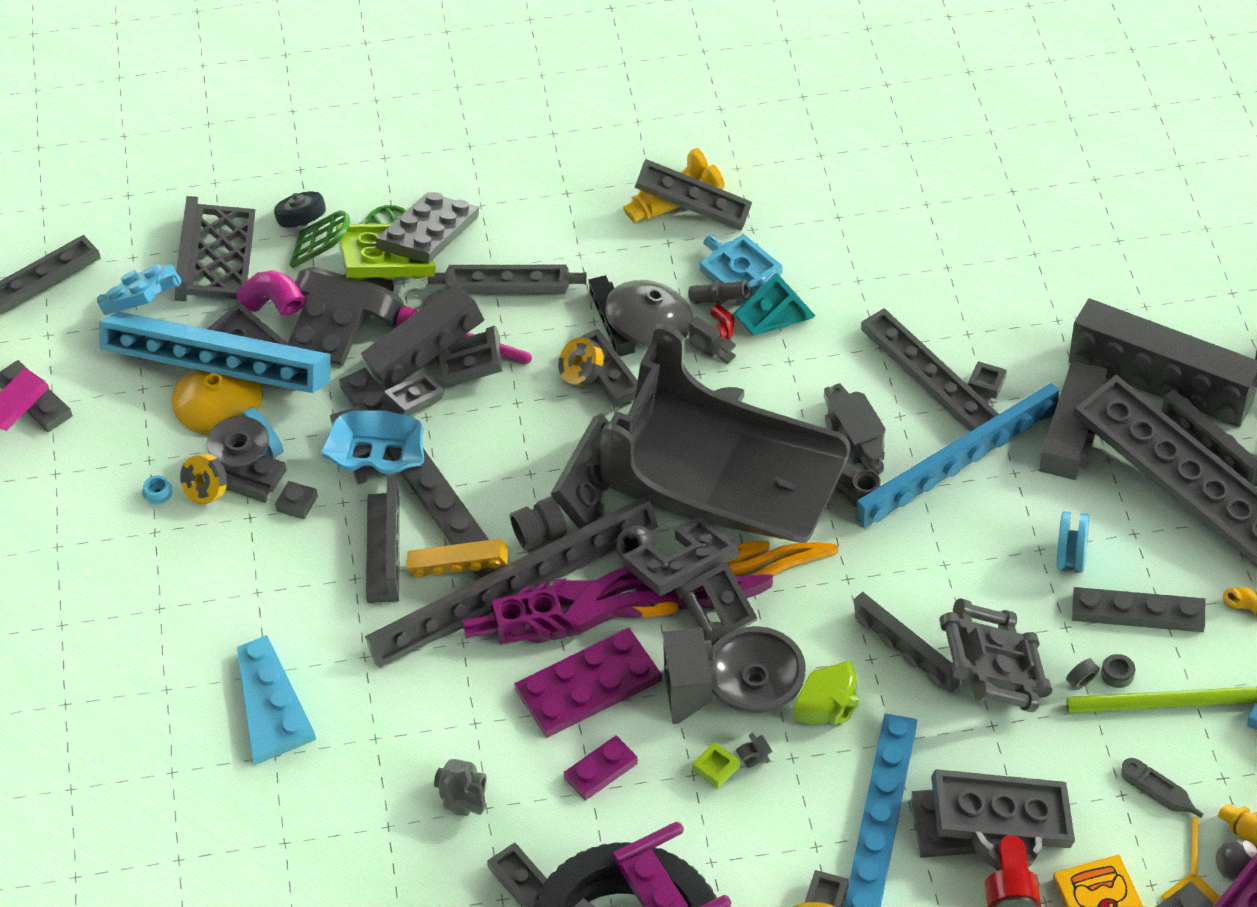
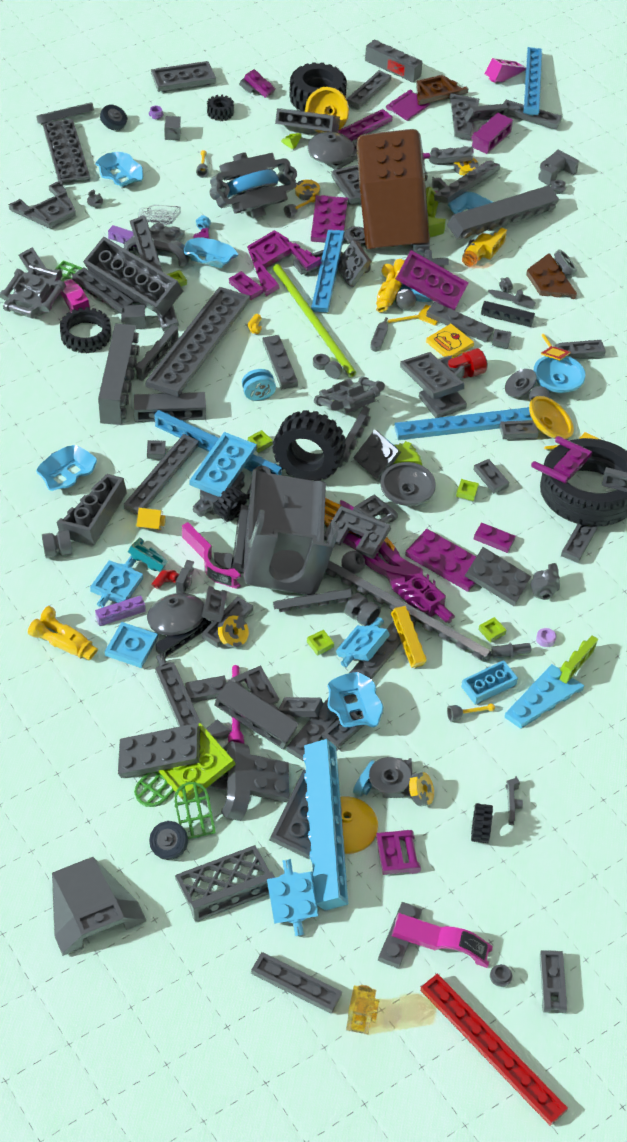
camera: 120 degrees left, 0 degrees up
(108, 520) = (481, 823): none -> black tyre
(127, 584) = (513, 784): none -> dark grey piece
(138, 421) = (391, 853): none -> magenta plate
(157, 489) = (437, 814): medium azure plate -> none
(263, 126) = (89, 902): none -> dark grey wedge
(271, 286) = (255, 815): dark pink cylinder -> none
(294, 760) = (578, 658): none -> lime plate
(296, 500) = (403, 743): dark grey plate -> none
(304, 575) = (455, 712): none -> hinge
(328, 636) = (489, 682): none -> medium azure piece
(369, 689) = (510, 650): none -> dark grey axle
(370, 753) = (546, 637): none -> lavender tile
(383, 545) = (412, 681): dark grey fence -> none
(418, 680) = (492, 629): none -> lime plate
(476, 499) = (362, 642): none -> medium azure plate
(510, 316) = (205, 689): none -> dark grey plate
(512, 728) = (498, 576): none -> dark grey plate
(513, 460) = (320, 642): none -> lime plate
(622, 254) = (131, 644): none -> medium azure plate
(623, 340) = (214, 604): none -> dark grey plate
(687, 672) = (430, 507): dark grey slope -> none
(689, 258) = (120, 610): none -> medium lavender piece
(693, 194) = (72, 616): dark grey plate -> none
(719, 292) = (146, 582): dark grey pin -> none
(731, 814) = (491, 476): none -> dark grey plate
(752, 376) = (204, 549): none -> dark pink piece
(753, 751) = (451, 477): dark grey plate -> none
(818, 412) = (229, 503): none -> black tyre
(837, 327) = (150, 519): none -> yellow brick
(838, 216) = (57, 543): none -> dark grey wheel
(847, 650) = (377, 454): none -> dark grey plate
(871, 532) = (316, 429): none -> black tyre
(881, 269) = (94, 511): none -> dark grey wedge
(893, 425) = (223, 464): none -> medium azure plate
(950, 515) = (261, 439): none -> lime plate
(1003, 254) = (63, 459): none -> medium azure piece

